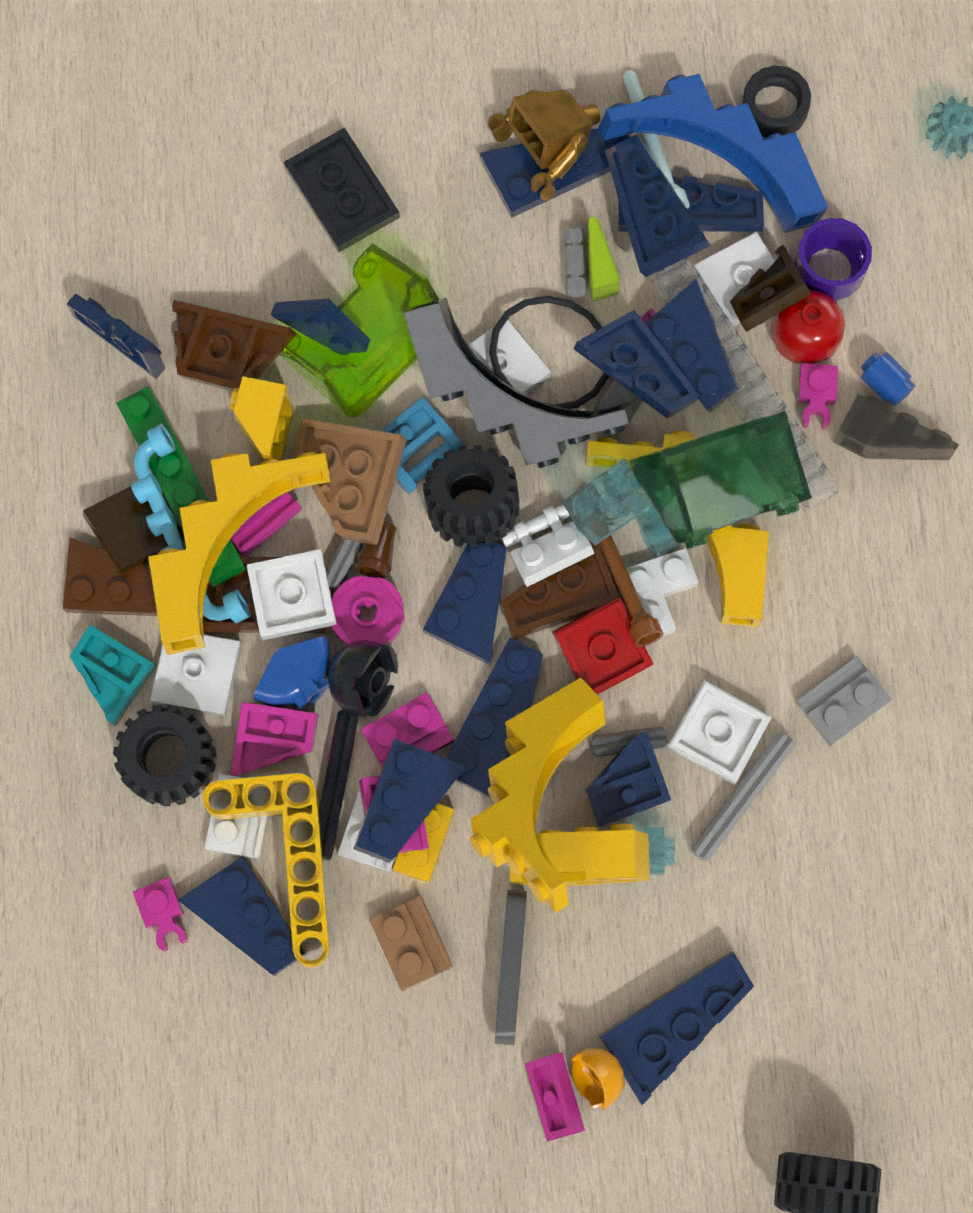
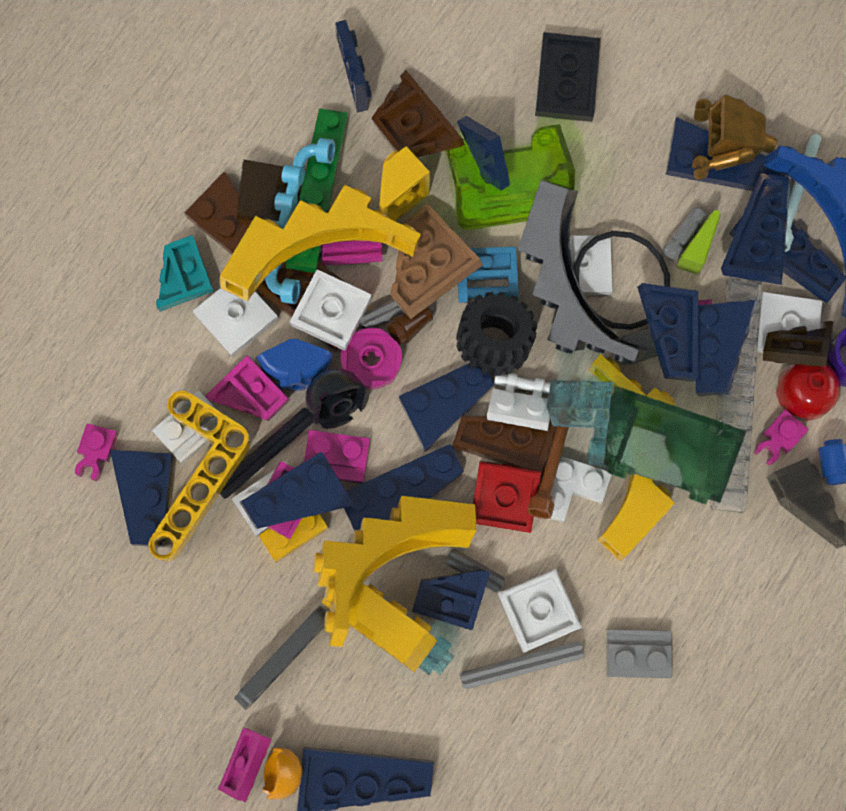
camera: 30 degrees right, 0 degrees up
(143, 733) = (158, 333): black tyre -> none
(410, 943) = (233, 592): medium nougat plate -> none

